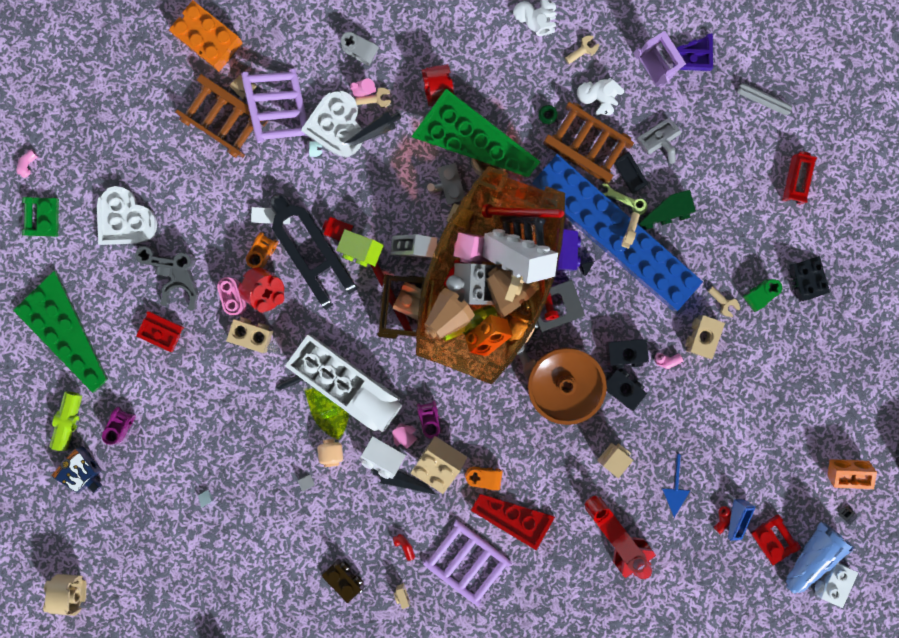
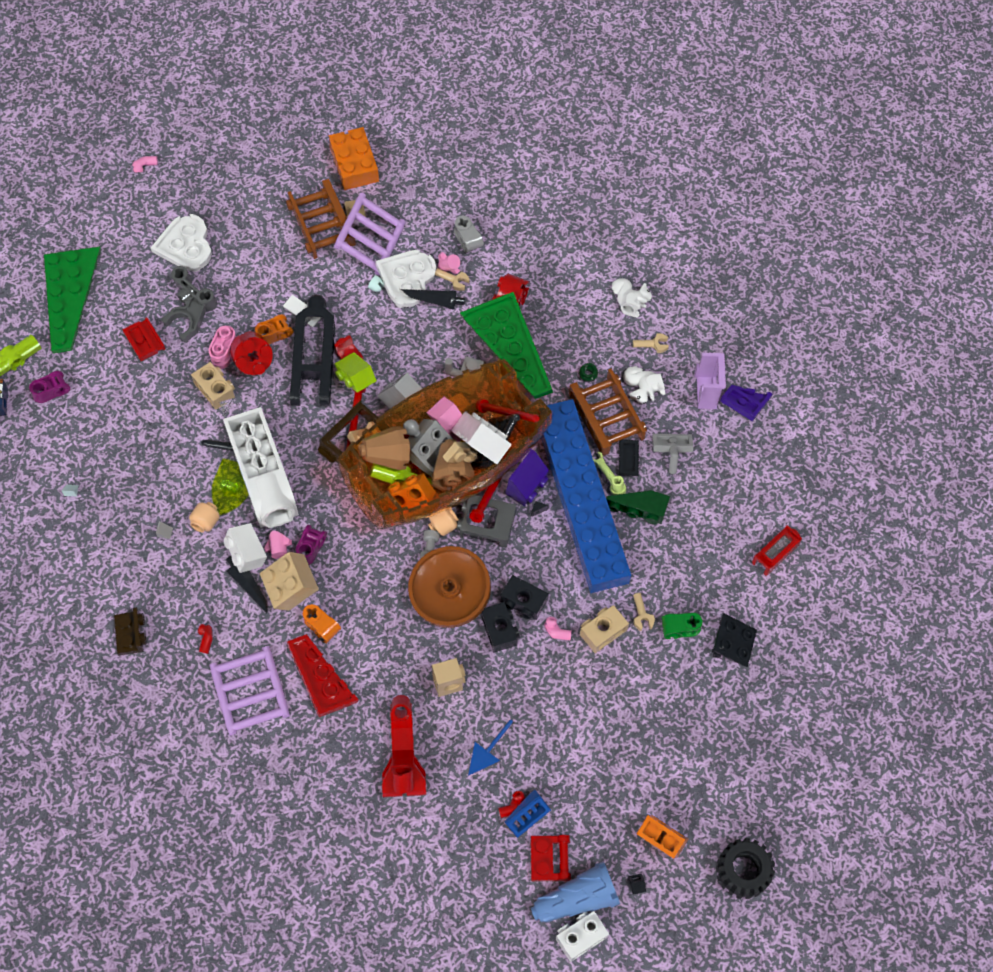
camera: 25 degrees right, 25 degrees down
(46, 216) = (126, 208): green plate -> none
(401, 596) = (169, 677): tan plate -> none
(630, 234) = (589, 490): tan bar -> none
(764, 99) = (787, 471): light grey axle -> none

